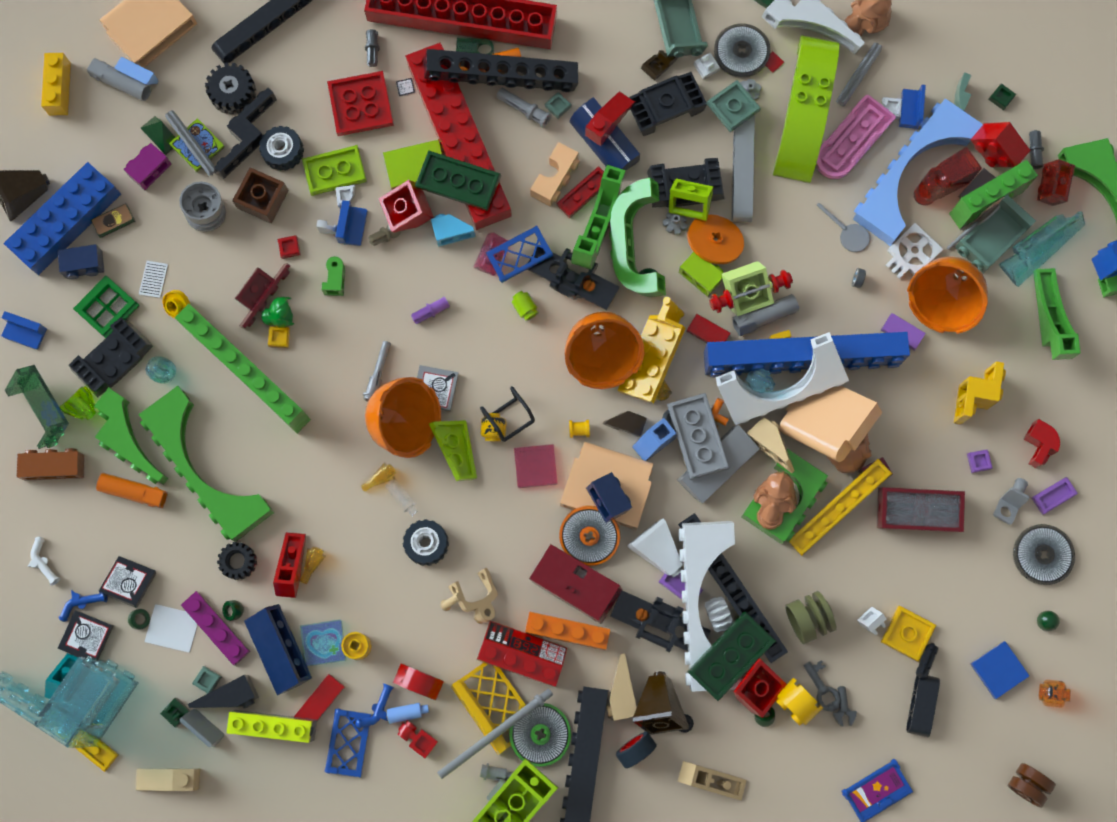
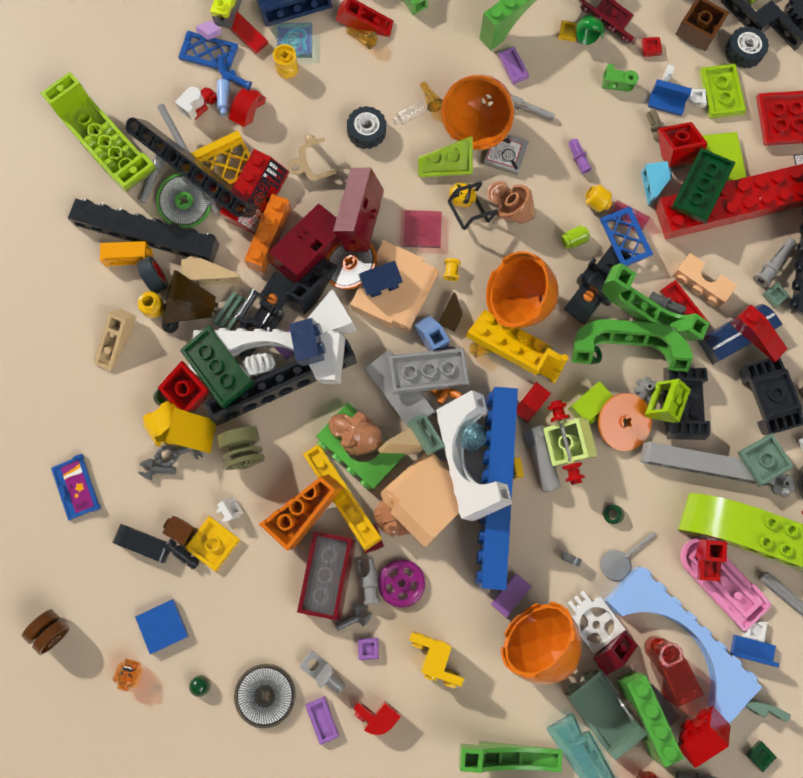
camera: 95 degrees right, 0 degrees up
(323, 745) = (208, 30): none -> lavender tile
(328, 392) = (513, 65): none -> medium lavender tile
(420, 745) = (190, 101): none -> white leg
(478, 286) = (598, 198): none -> yellow head
(499, 372) = (513, 203): none -> nougat head
(510, 736) = (191, 168): none -> black beam
(533, 531) = (358, 210): none -> dark red brick
(585, 208) = (667, 303): none -> dark grey axle
(613, 788) = (124, 253): none -> light orange window
(620, 572) = (311, 286): none -> black slope
(671, 738) = (151, 304): none -> yellow head
(676, 665) = (216, 321): none -> sand green tile
(699, 556) = (307, 341): none -> dark blue brick
(768, 431) = (424, 433): none -> sand green tile
(801, 672) = (191, 431): none -> yellow sticker
(804, 236) = (620, 516): none -> dark green piece
(838, 149) = (710, 555): none -> red brick
(868, 545) = (300, 513): none -> orange wedge
(903, 669) = (179, 530): none -> reddish brown brick
(919, 468) = (369, 582): none -> light grey piece
(921, 425) = (417, 576): none -> magenta plate
(939, 228) = (615, 653): none -> dark red slope
(952, 477) = (353, 618): none -> dark grey bar

